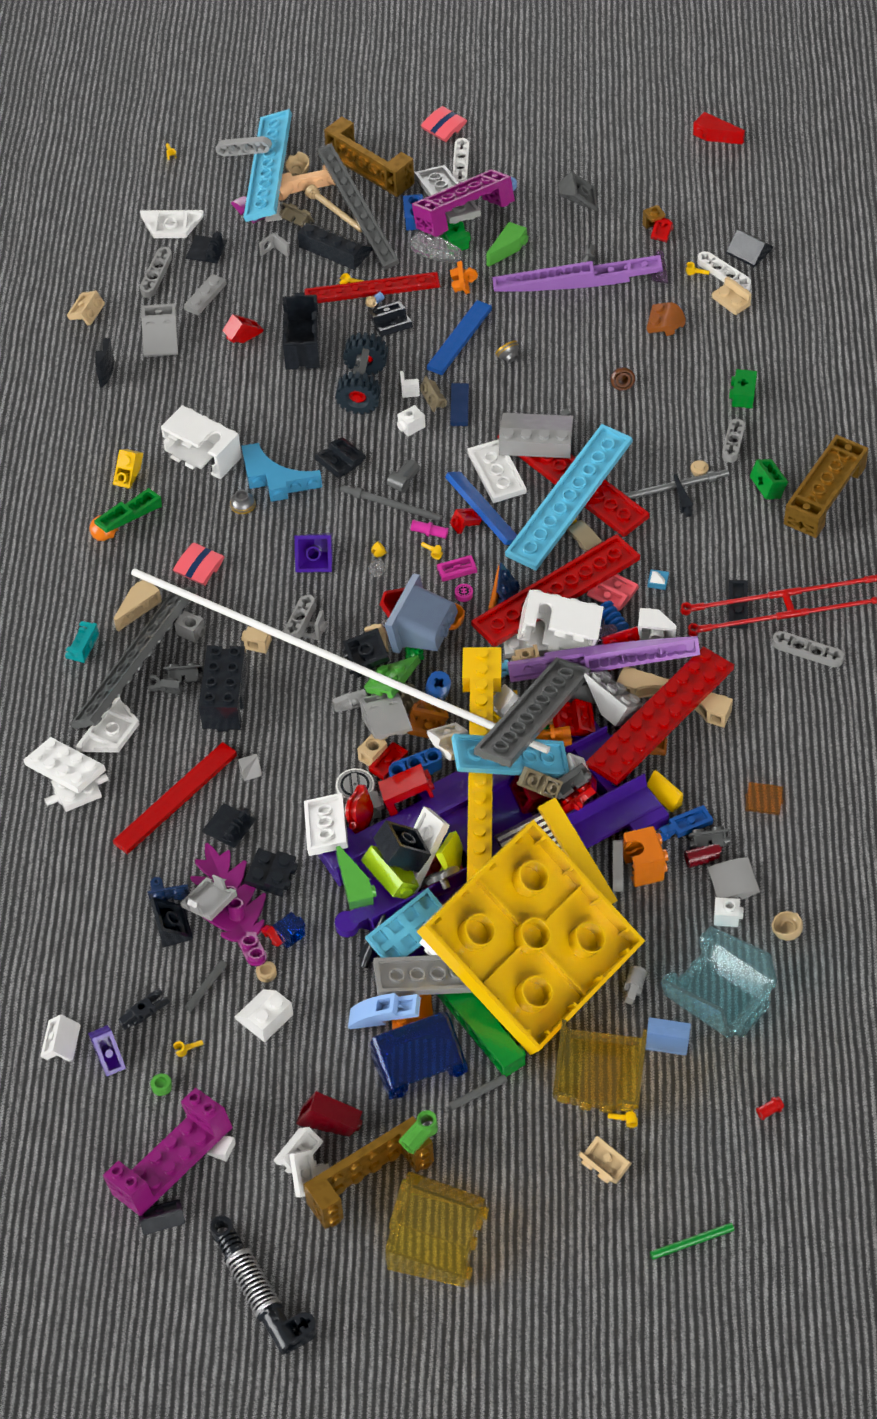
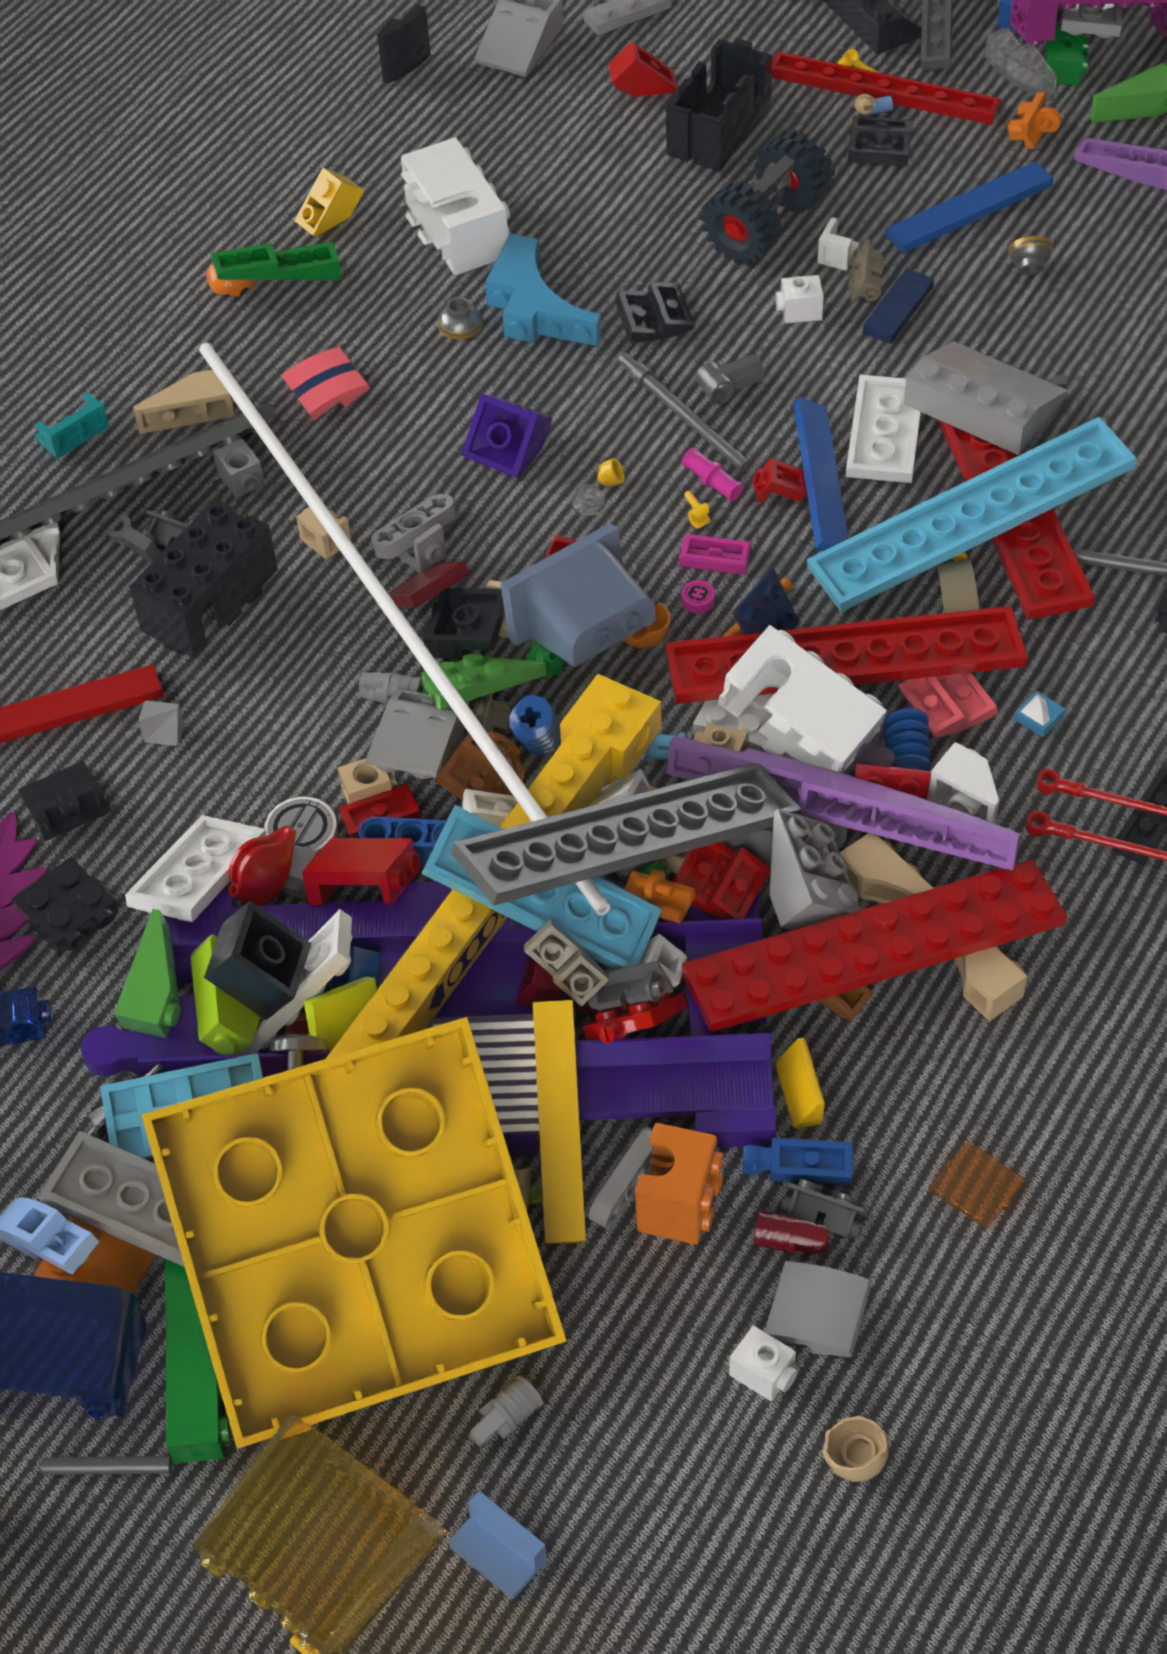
camera: 30 degrees right, 0 degrees up
(333, 641) = (428, 584): none -> dark red tile
(724, 984) = (653, 1508): clear light blue windscreen -> none

